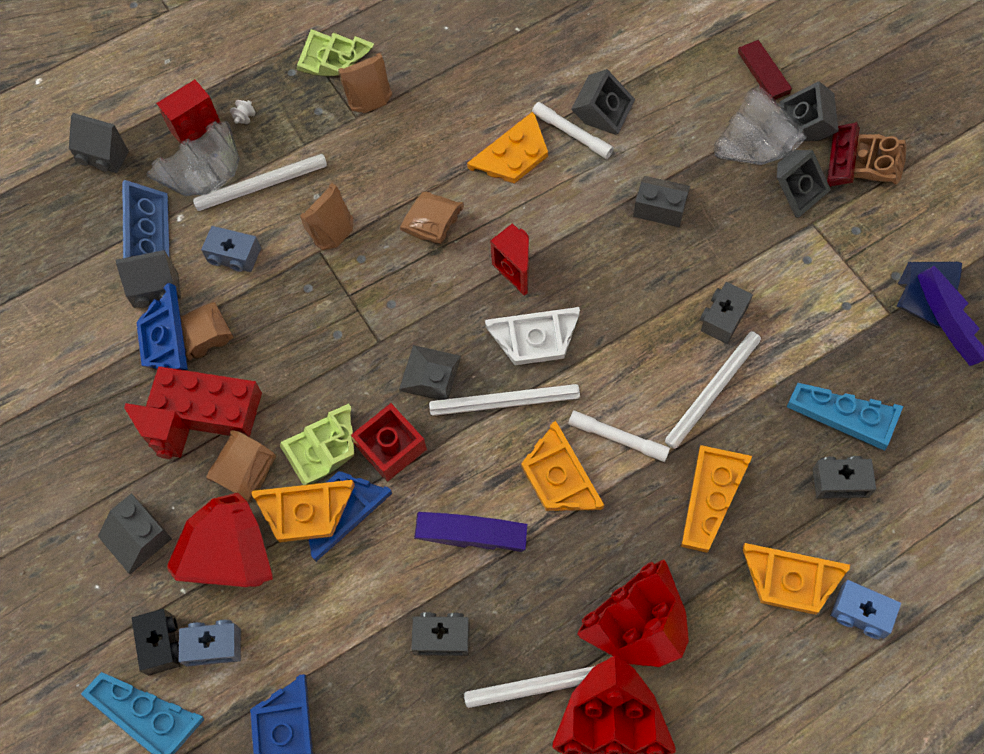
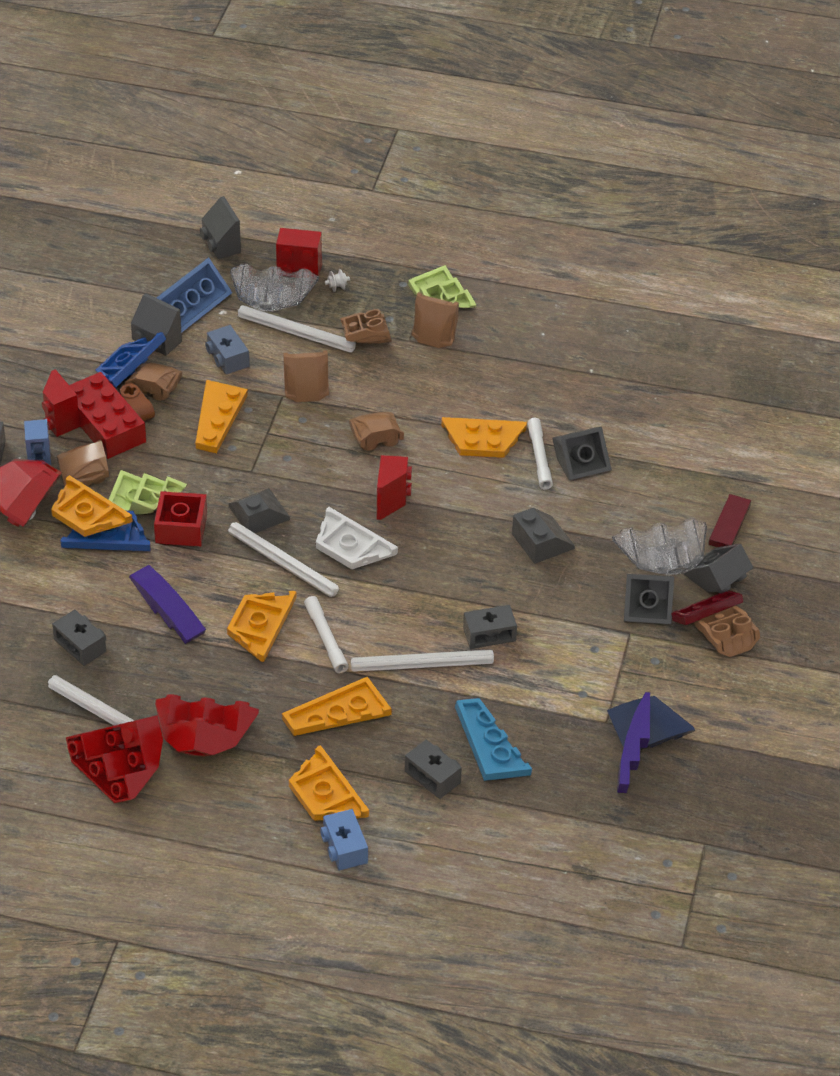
camera: 40 degrees right, 20 degrees down
(187, 486) = (37, 440): none -> medium blue brick
(218, 364) = (137, 401): none -> dark orange piece
(289, 312) = (218, 412): none -> light orange wing
(318, 135) = (366, 327): none -> medium nougat slope

